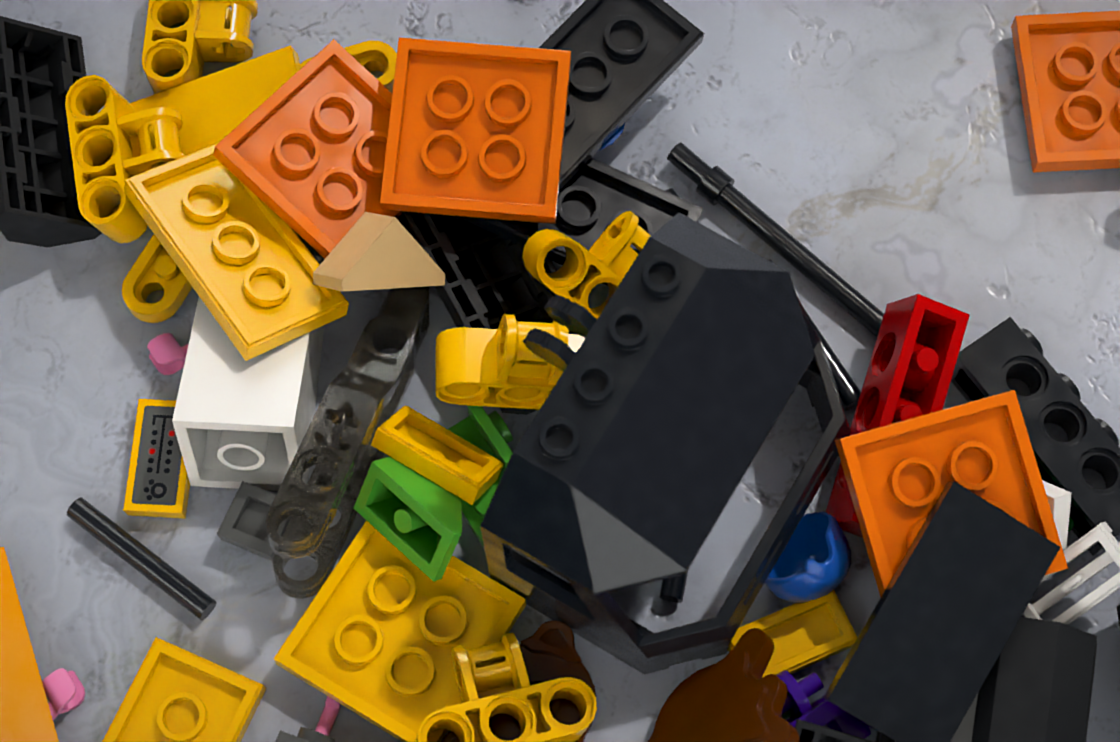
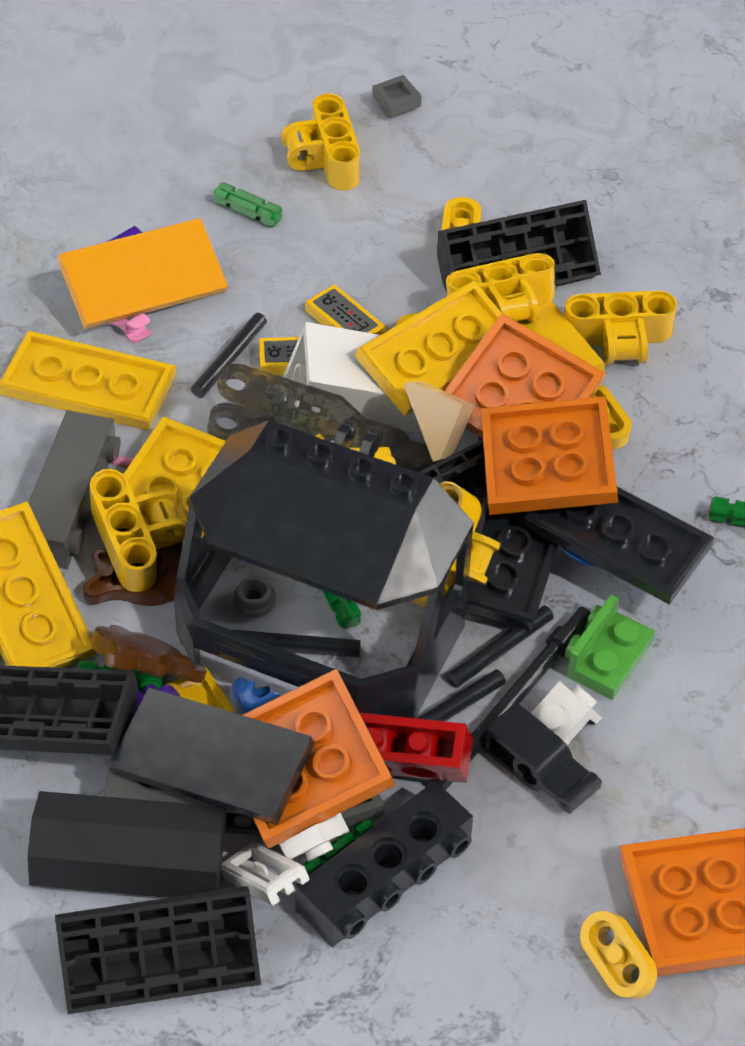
camera: 80 degrees right, 20 degrees down
(98, 386) = (339, 310): none -> tile
(734, 133) = (607, 649): none -> bright green bracket
(836, 197) = (566, 710): none -> white bracket
(902, 235) = (539, 758): none -> black piece

